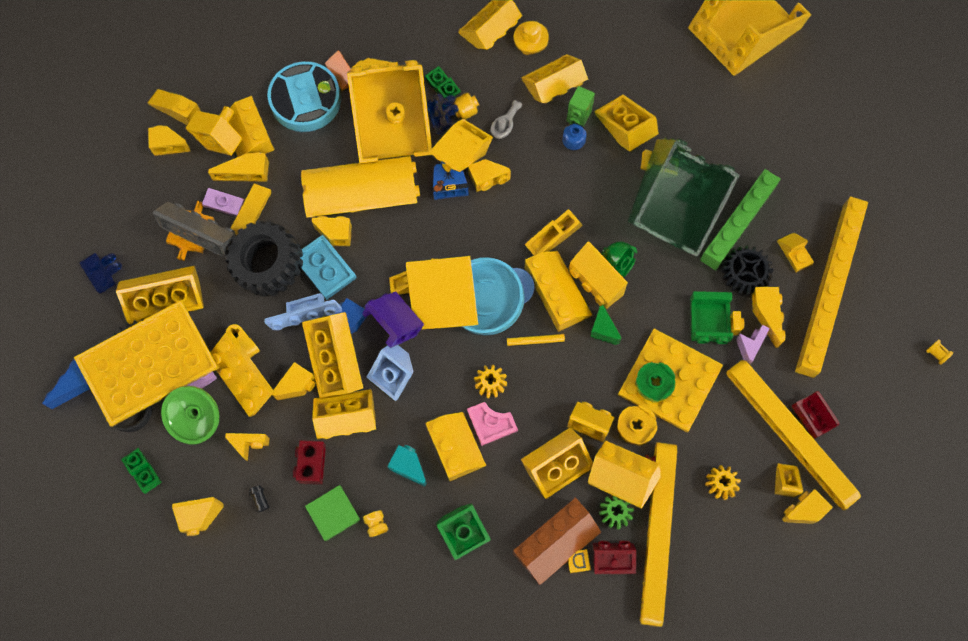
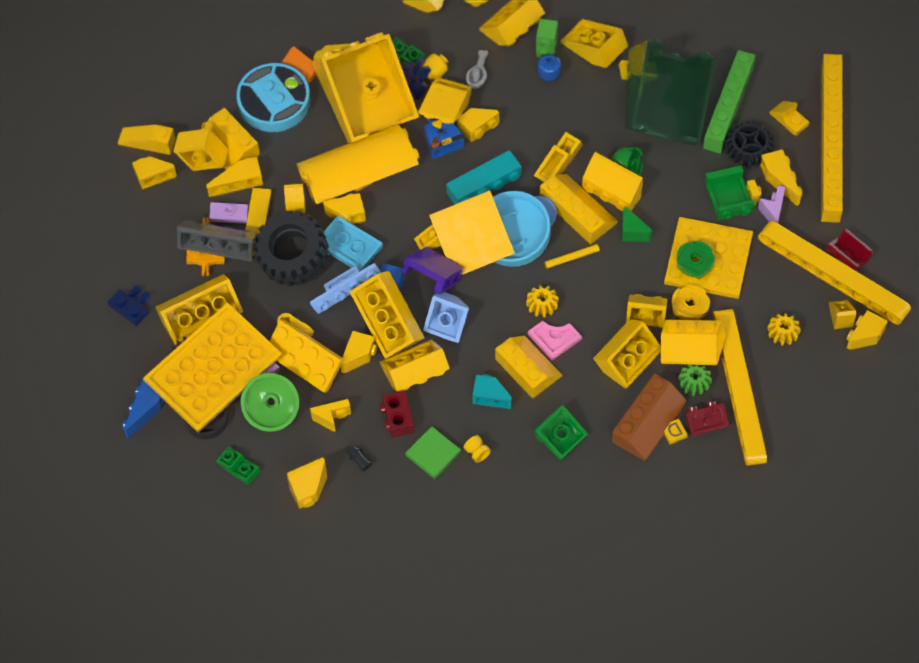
camera: 15 degrees left, 10 degrees down
(285, 211) = (295, 198): none -> yellow slope
(475, 236) = (485, 178): none -> teal brick

